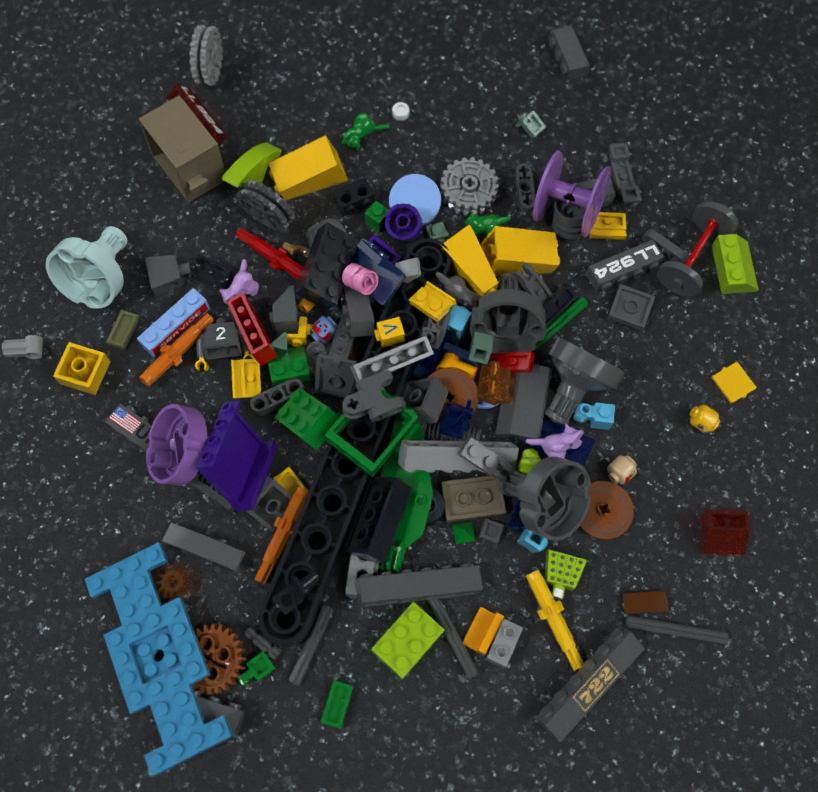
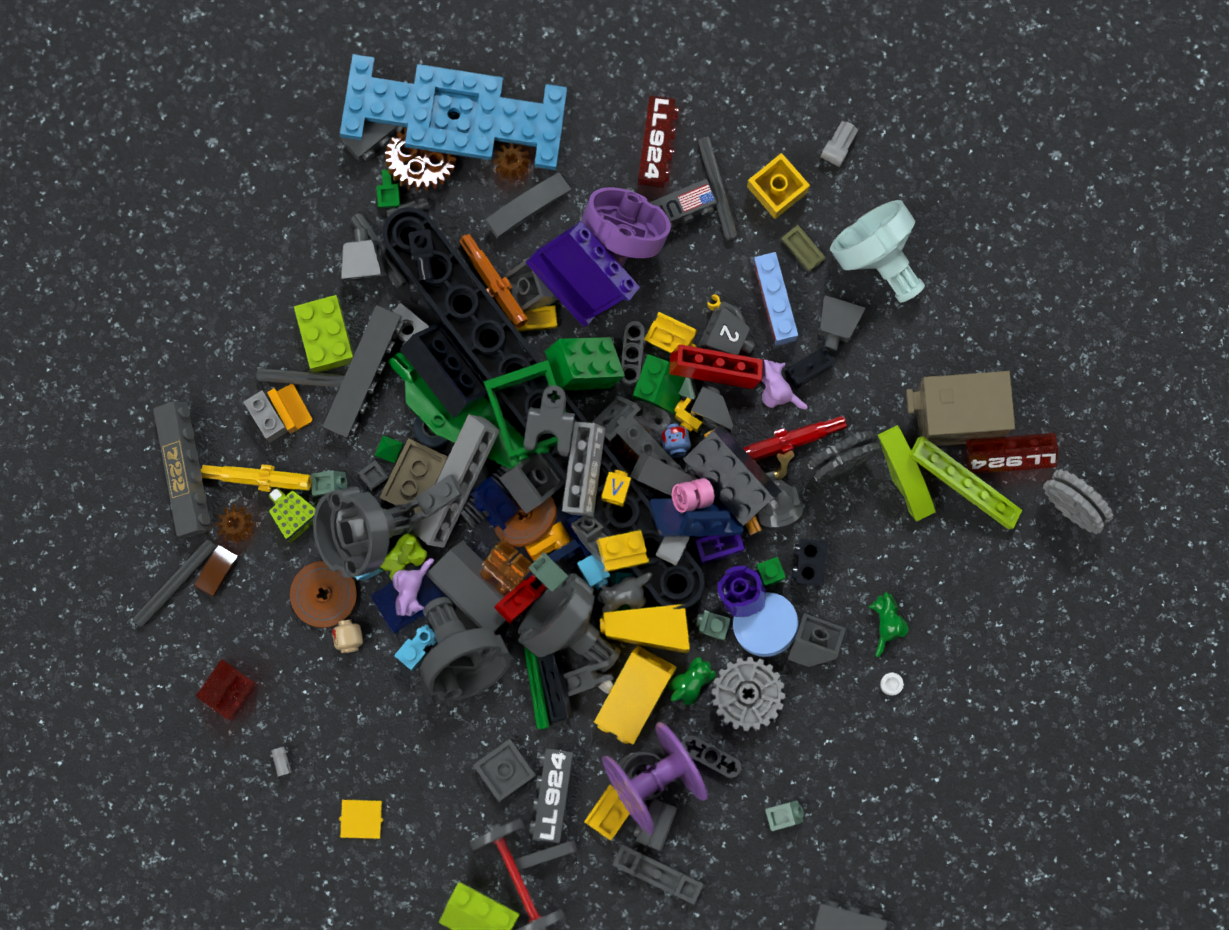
camera: 130 degrees right, 10 degrees up
(93, 480) = (656, 142): none -> clear red brick
(99, 423) = (717, 188): none -> dark grey axle
(172, 354) = (742, 280): orange piece -> none
(235, 127) = (965, 482): none -> lime plate
(307, 169) = (872, 533): yellow slope -> none
(326, 649) = (363, 257): none -> torso
(337, 704) = (313, 242): green plate -> none
(403, 161) = (816, 641): none -> dark grey slope
(521, 559) = (327, 481): none -> sand green bracket
(607, 618) = (230, 531): none -> clear orange gear
(704, 418) = (343, 755): yellow head -> none
(737, 465) = (281, 761): none -> light grey pin

